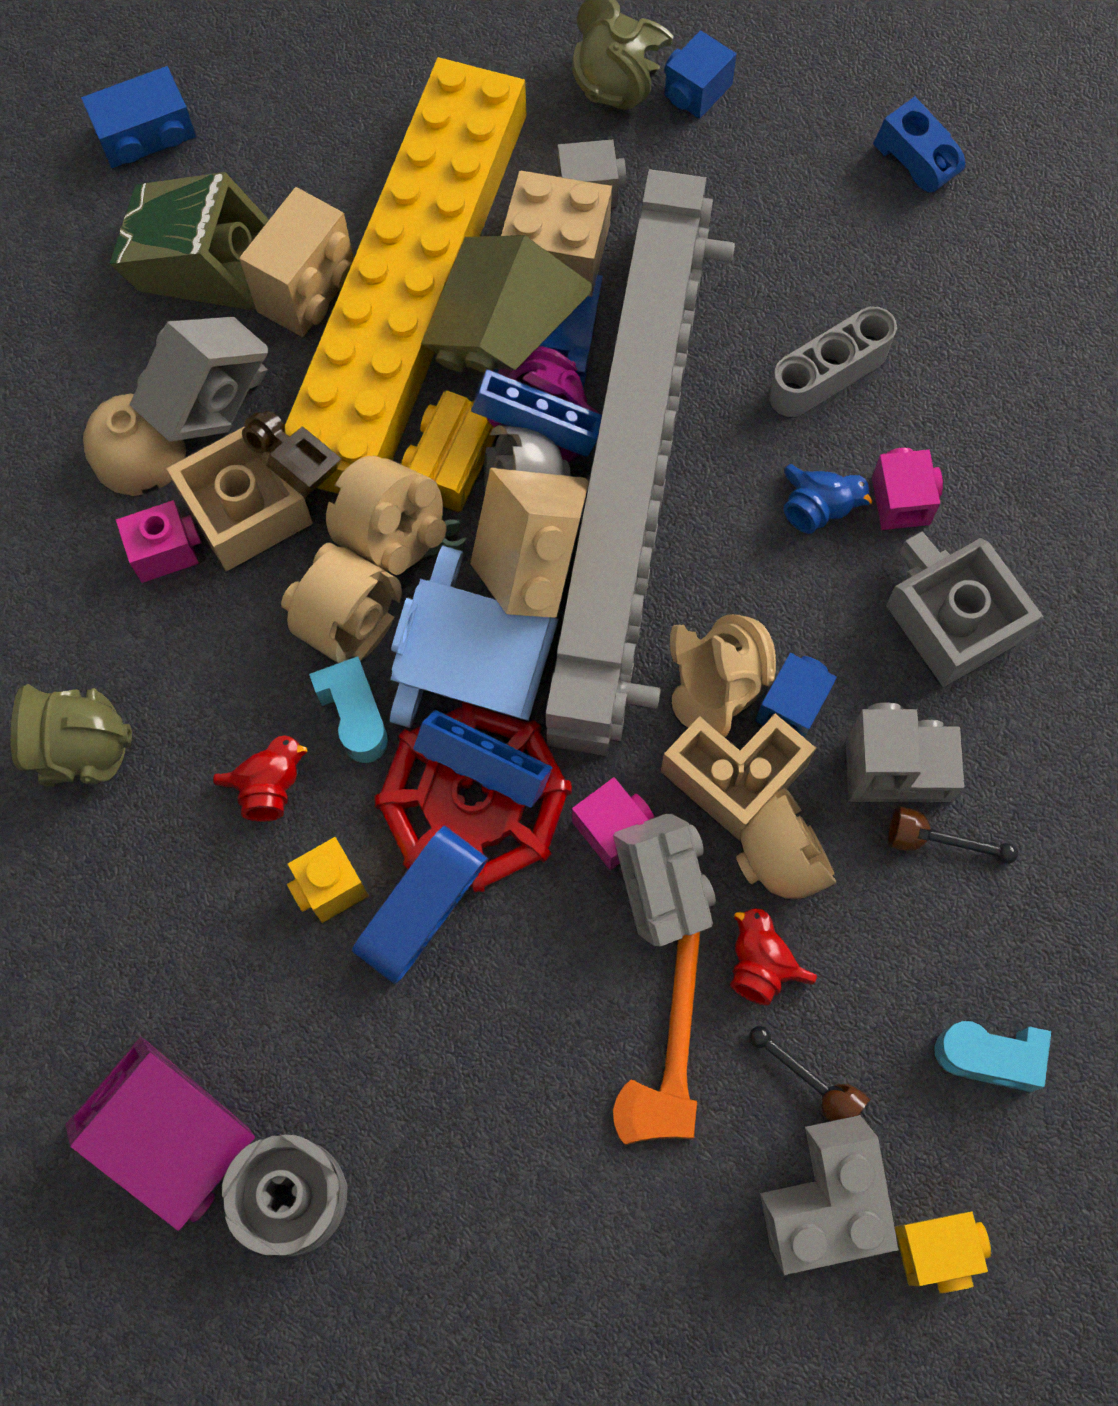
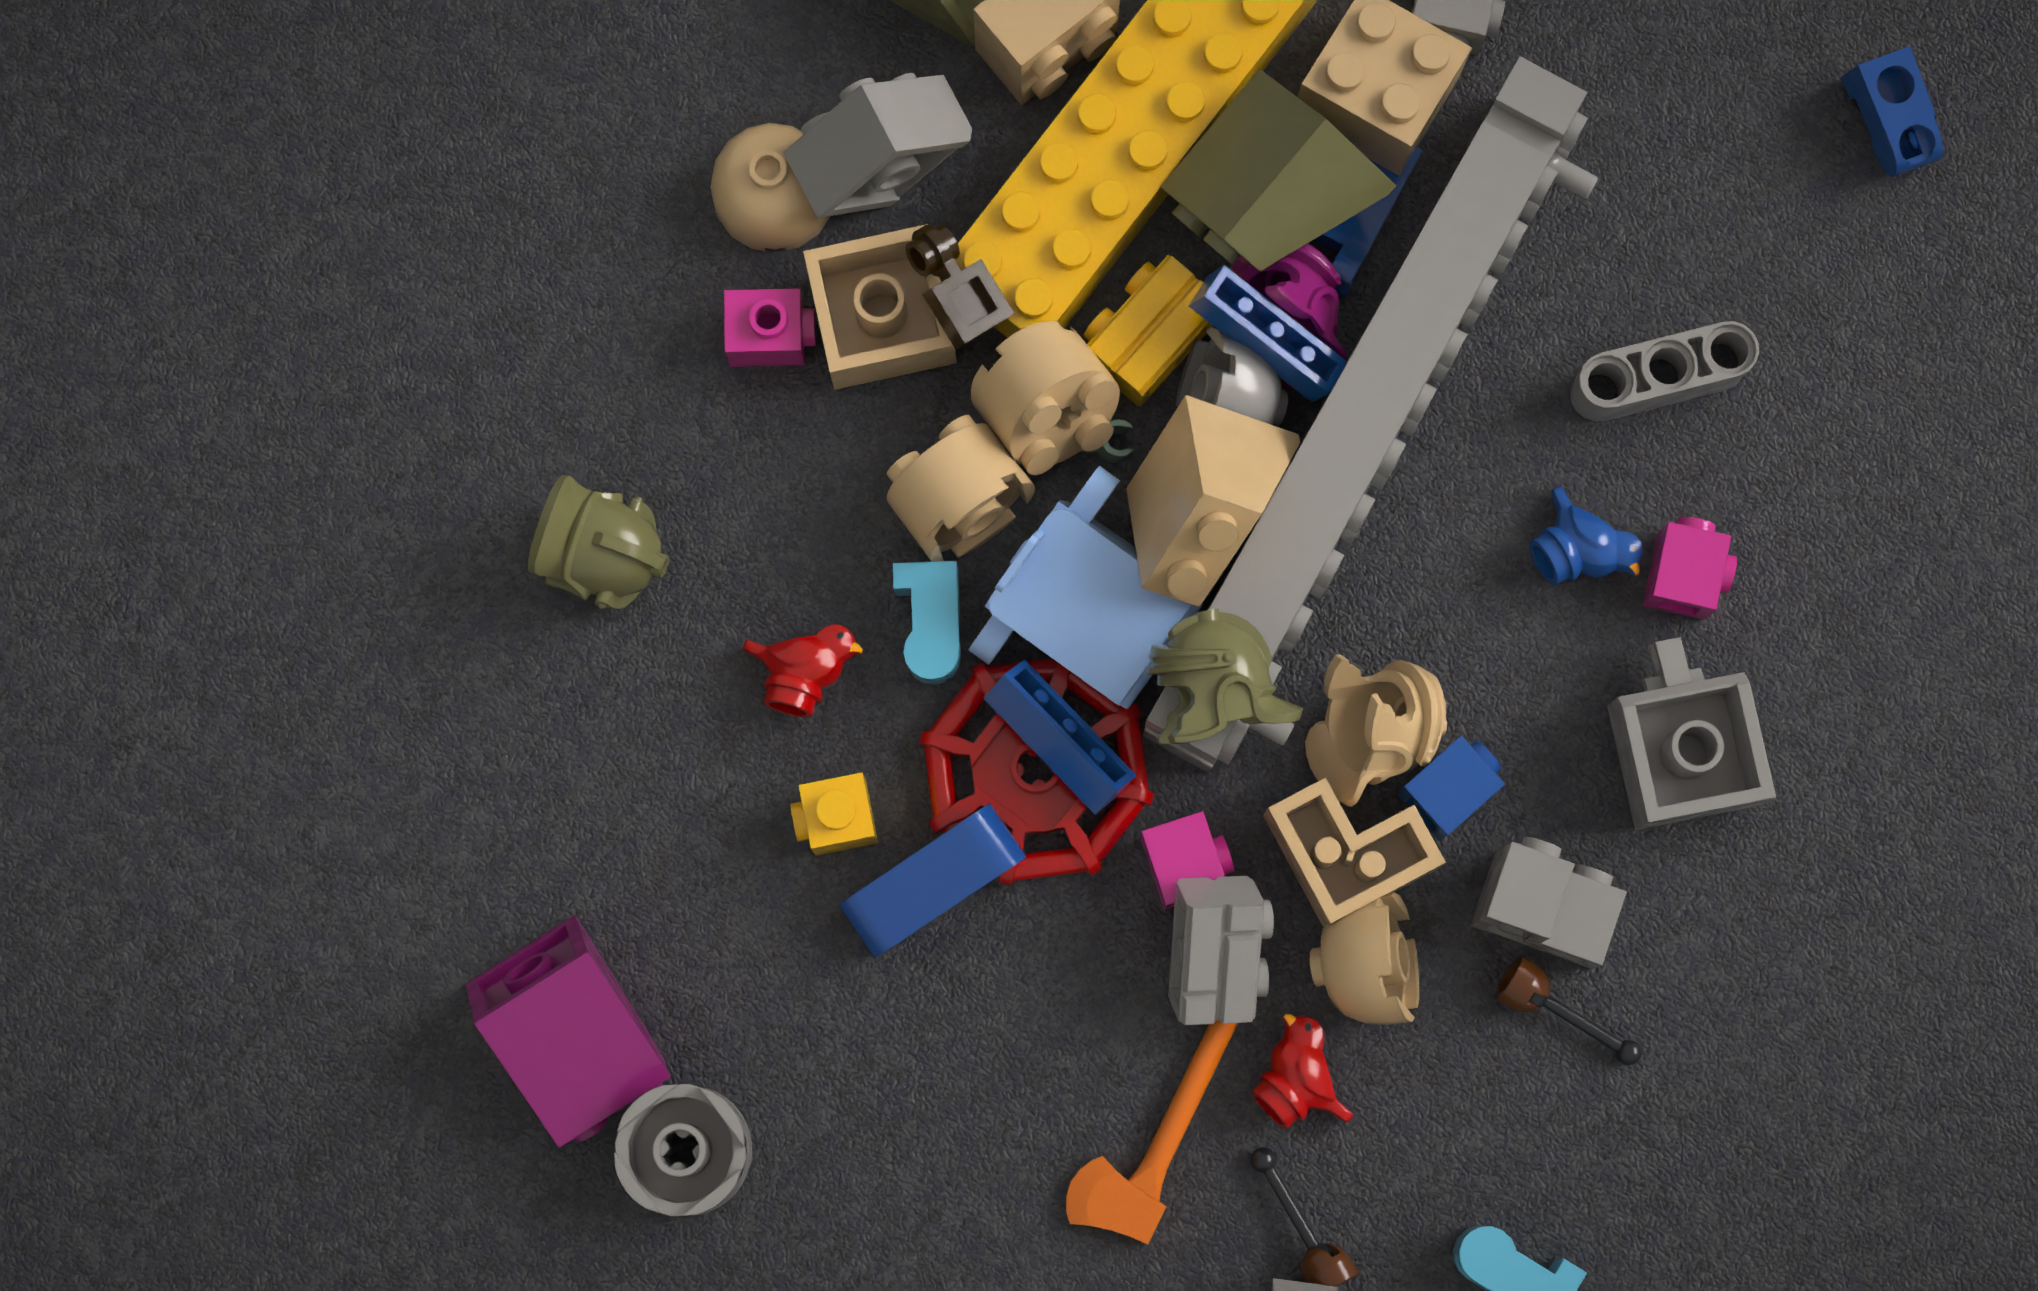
camera: 20 degrees right, 10 degrees up
(590, 654) = (1220, 677): none -> olive helmet

